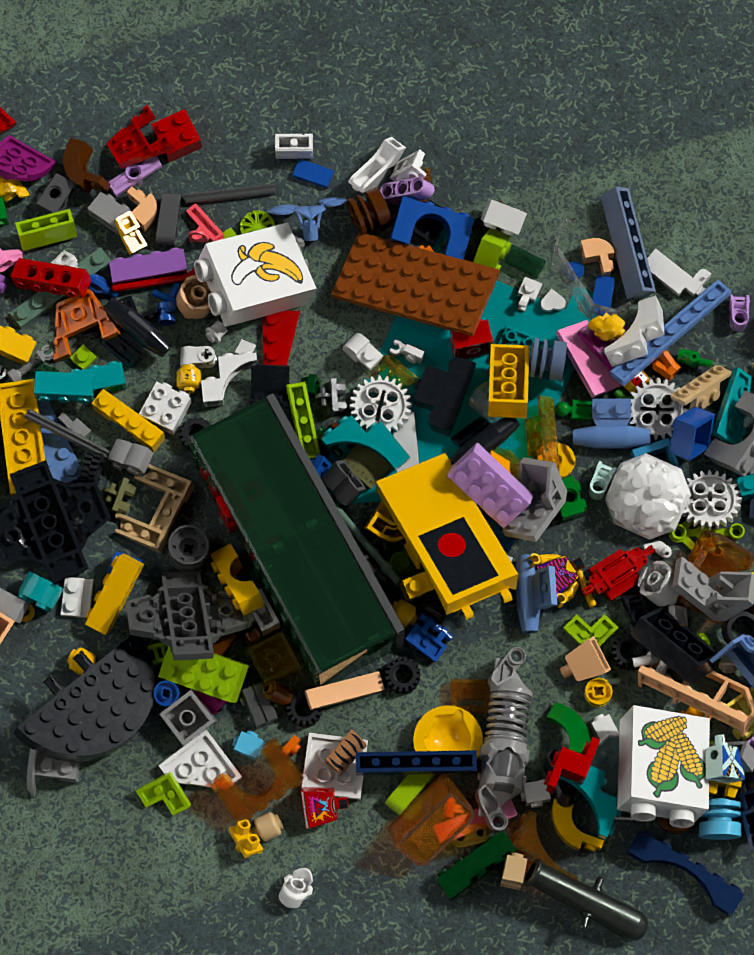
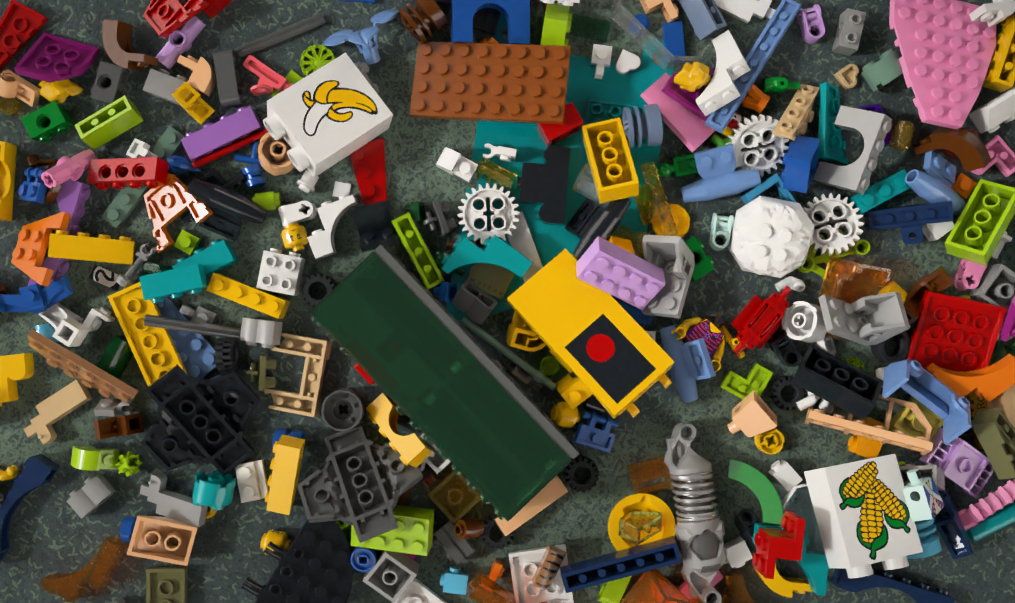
camera: 15 degrees left, 15 degrees up
(175, 338) = (268, 200): none -> lime brick
(446, 733) = (640, 526): none -> clear yellow slope

